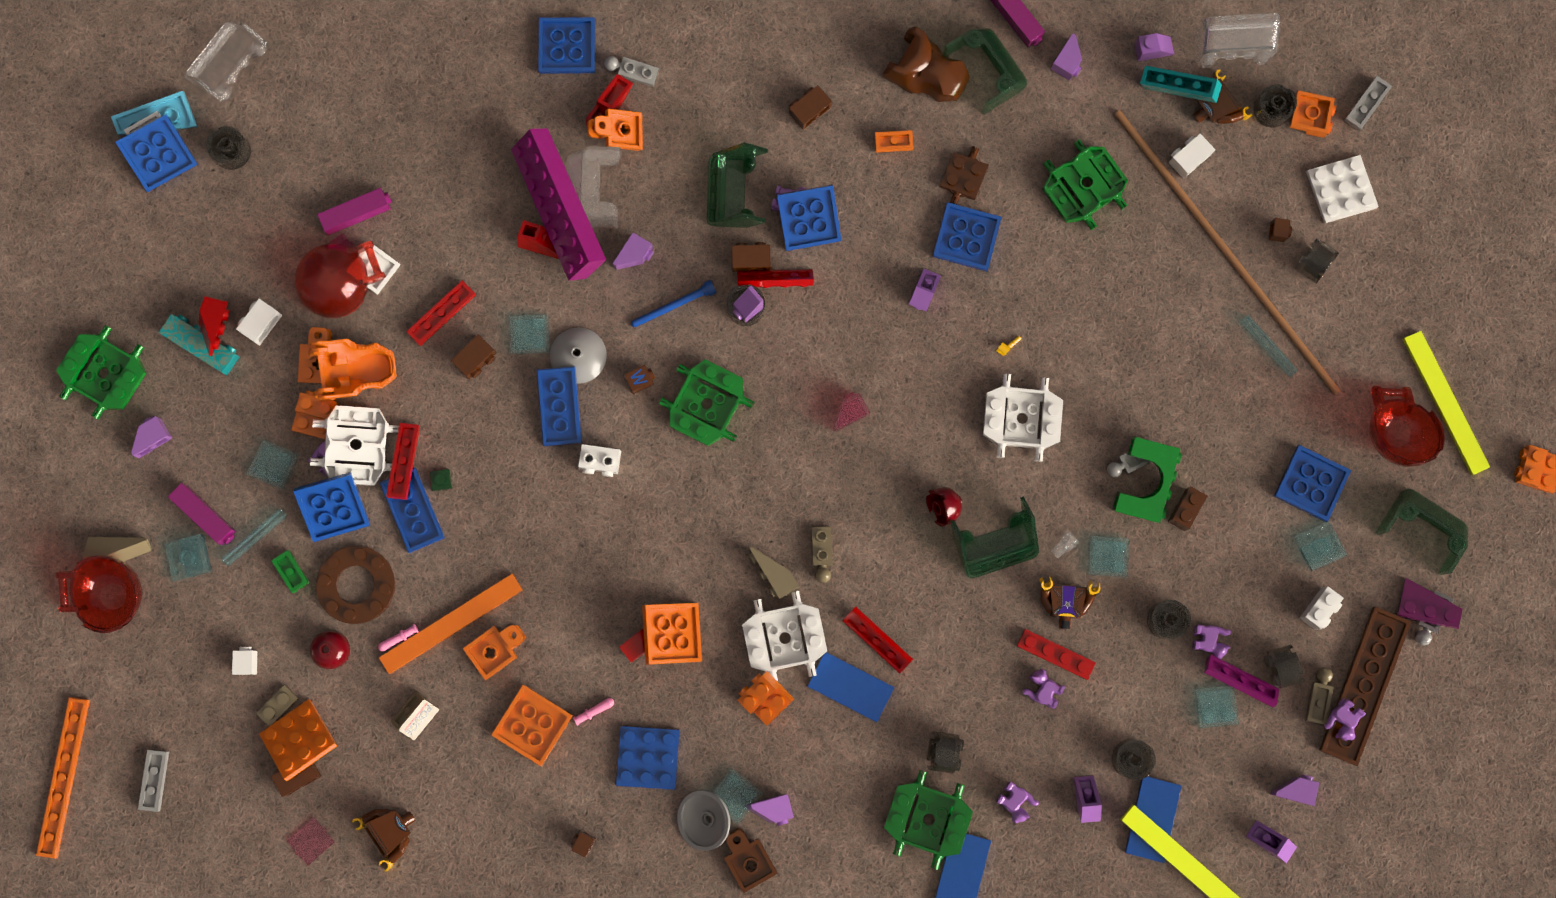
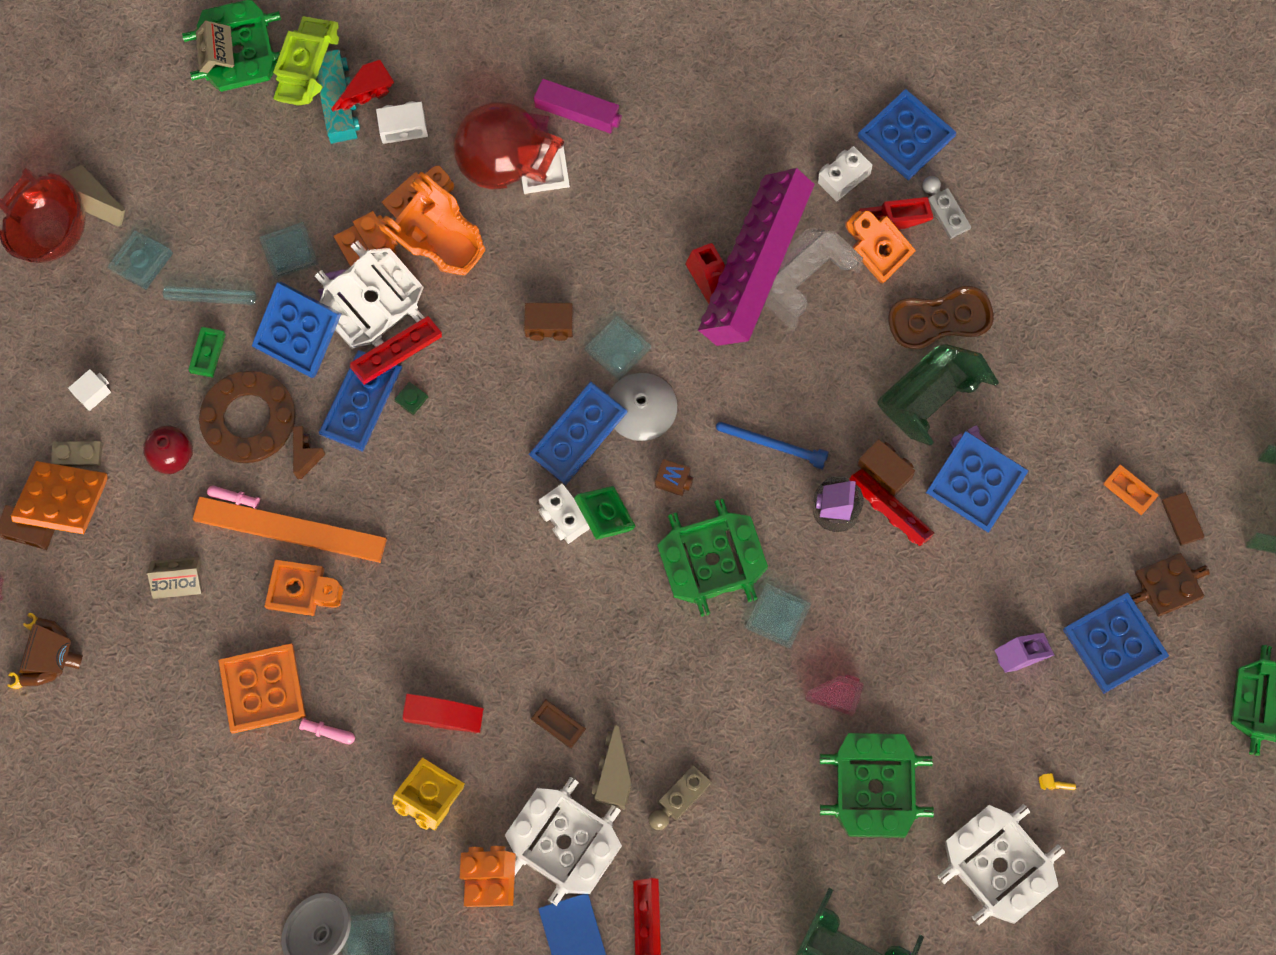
camera: 55 degrees right, 10 degrees down
(91, 386) = (214, 46): none -> dark tan panel
(150, 436) = (216, 132): medium lavender slope -> none
(155, 341) = (302, 59): none -> lime piece
(202, 514) = (188, 235): magenta brick -> none
(416, 576) = (304, 458): none -> reddish brown slope
(441, 313) = (560, 258): red plate -> none
(555, 103) = (844, 173): none -> white brick
(582, 843) = (192, 839): reddish brown plate -> none
(622, 437) = (604, 512): none -> green plate
(634, 252) = (782, 363): medium lavender slope -> none
(647, 757) = (329, 823): blue plate -> none
(672, 633) = (465, 730): orange plate -> none
(686, 688) = (427, 794): none -> yellow plate
(702, 127) = (923, 321): none -> reddish brown plate
(716, 578) = (558, 723): none -> reddish brown tile
(774, 399) = (778, 616): none -> clear light blue plate
(810, 106) = (1079, 385): reddish brown brick -> none
(926, 427) = (897, 784): none -> green piece
(927, 69) = (1229, 454): reddish brown animal -> none
(936, 131) = (1183, 519): none -> reddish brown tile
(945, 504) = (843, 868): dark red cylinder -> none

